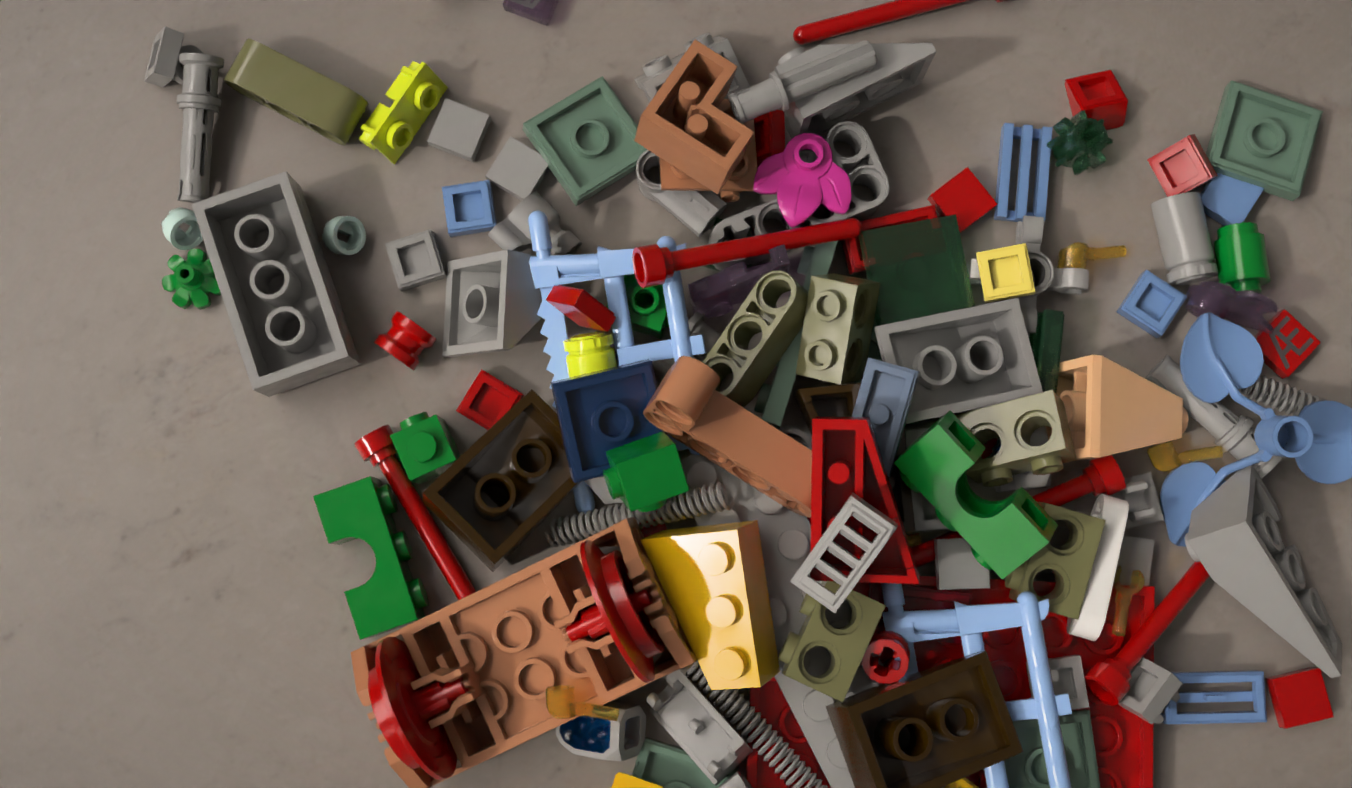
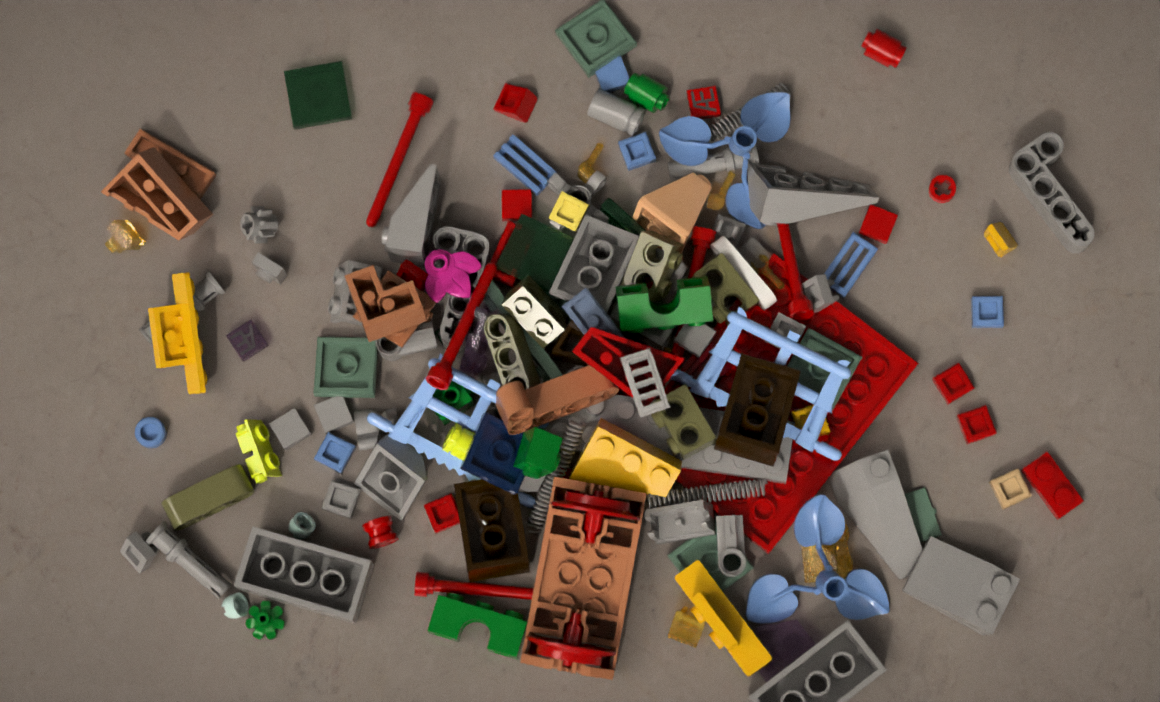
camera: 50 degrees left, 5 degrees down
(425, 447) = (443, 559): green brick -> none
(562, 705) = (620, 572): clear yellow hand -> none
(581, 307) = (433, 428): red tile -> none
(606, 738) = (649, 570): rock -> none
(802, 81) = (401, 250): light grey axle -> none
(896, 668) = (721, 403): red bush -> none
(1079, 143) = (531, 127): clear green gear -> none
(1182, 166) = (580, 86): tile -> none
(1239, 307) = (669, 111): clear purple plate -> none

